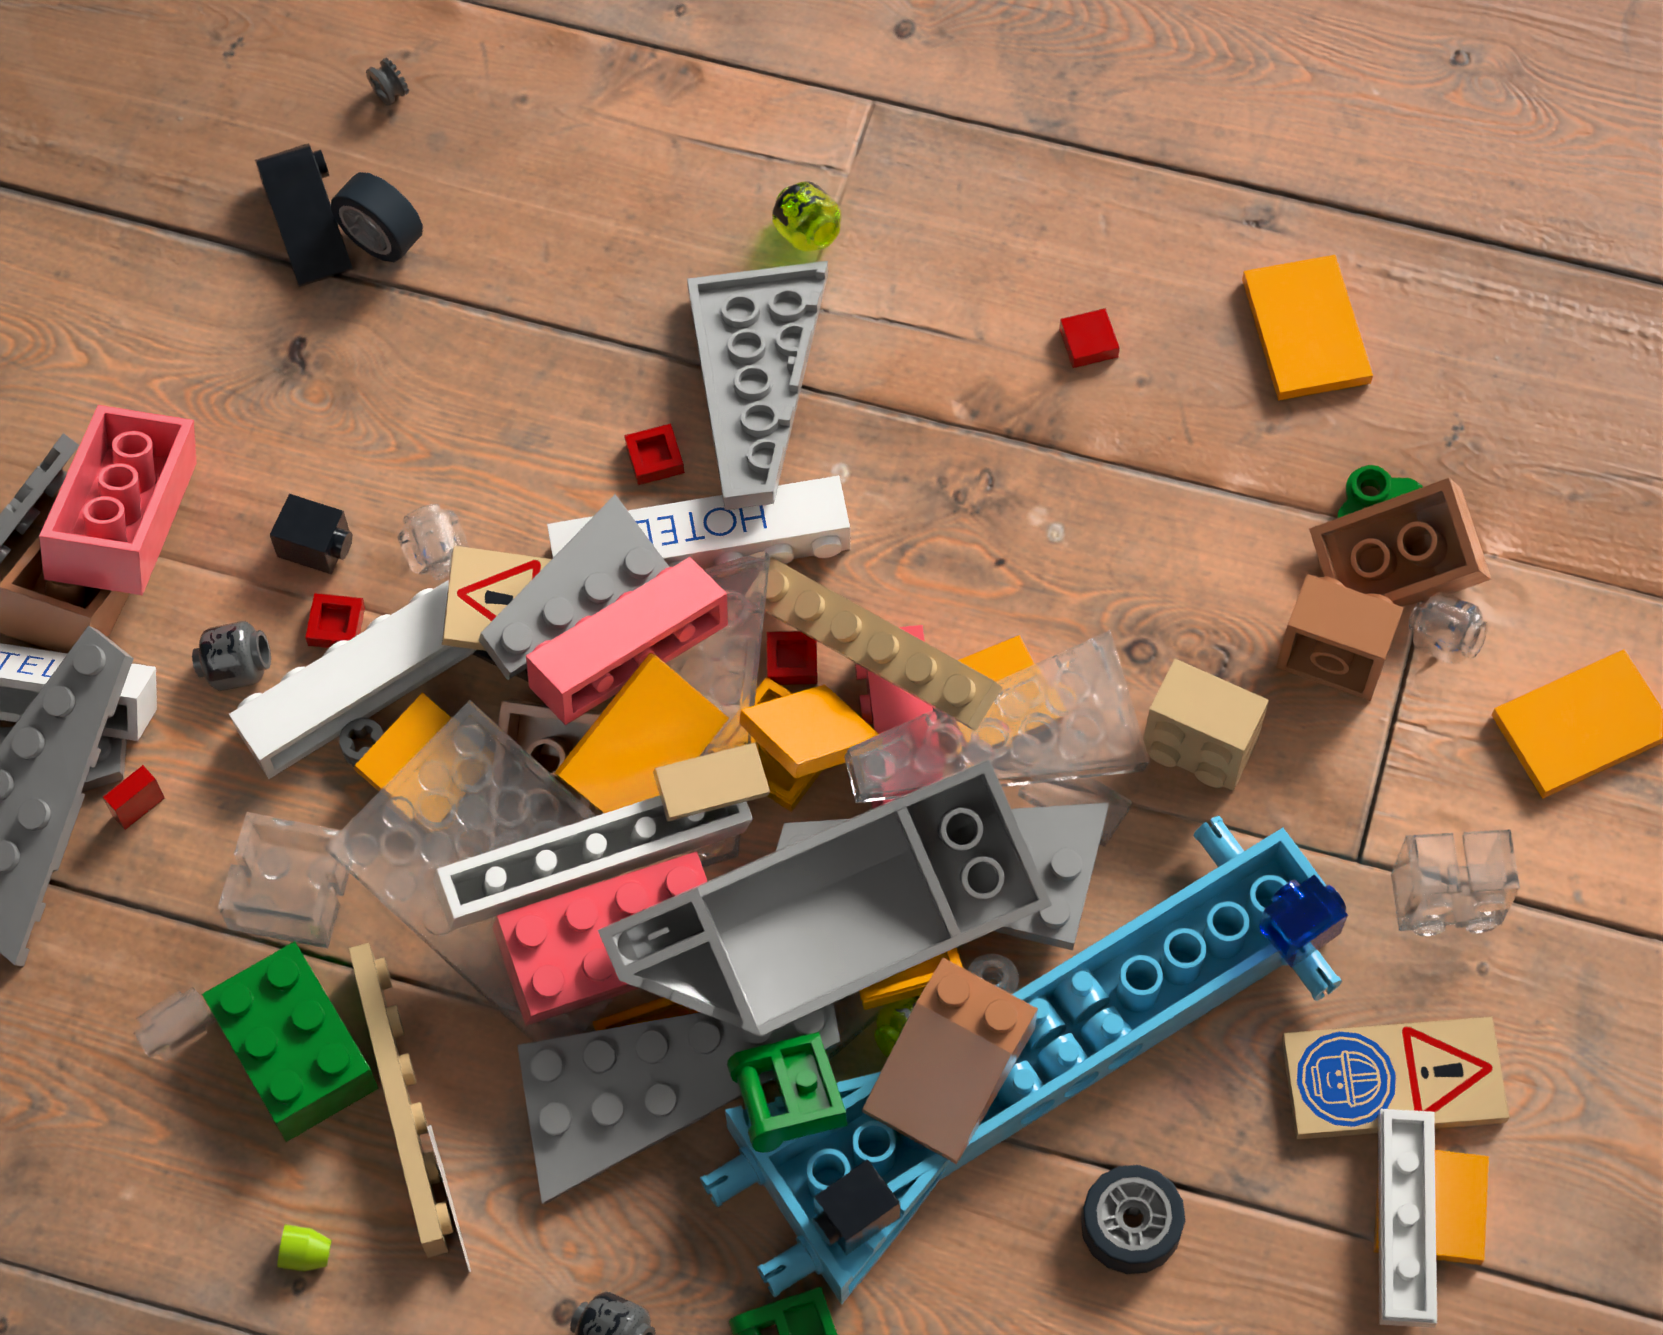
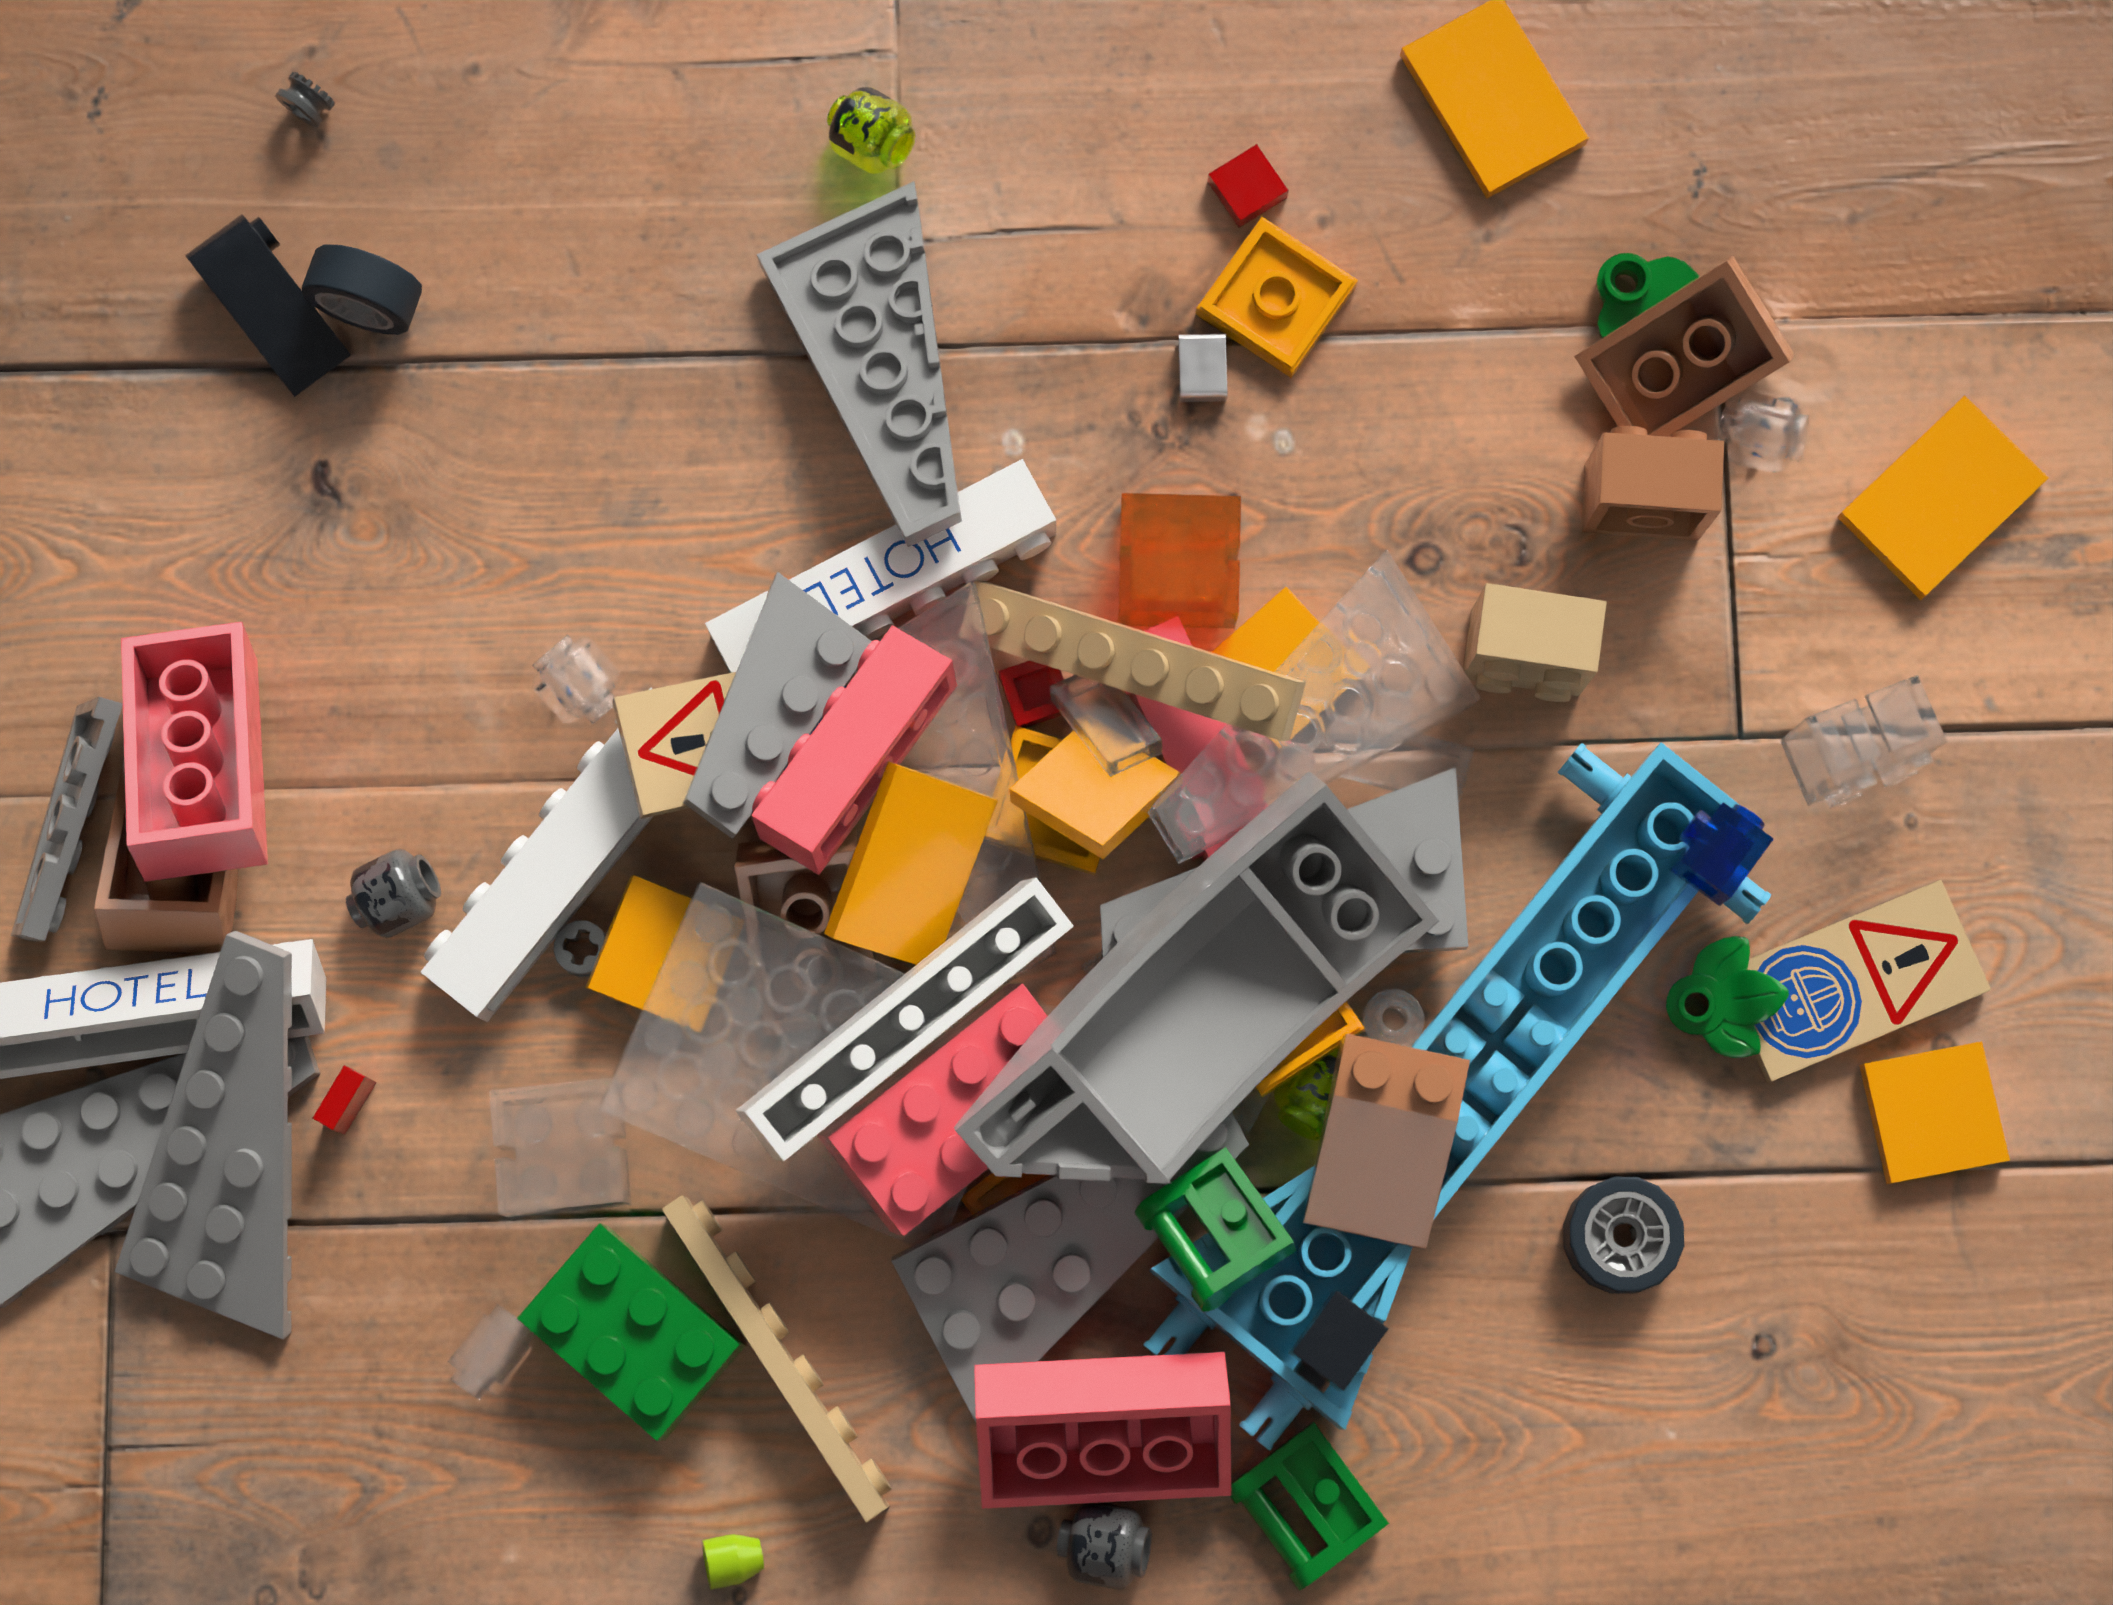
camera: 20 degrees left, 15 degrees up
(311, 534) = (430, 713): black brick -> none
(334, 619) = (495, 809): red tile -> none
(436, 1151) = (854, 1424): white sticker -> none
(640, 1230) = (1103, 1430): none -> coral brick
(654, 454) = (792, 486): red tile -> none
(711, 781) = (1016, 903): tan tile -> none
(837, 687) = (1106, 723): none -> clear tile
(937, 586) = (1180, 560): none -> clear orange piece
(1008, 458) = (1202, 367): none -> flat silver piece
(1085, 424) = (1276, 297): none -> light orange tile
(1286, 1057) = (1735, 998): none -> green plate
(1407, 1218) = (1917, 1141): white tile -> none

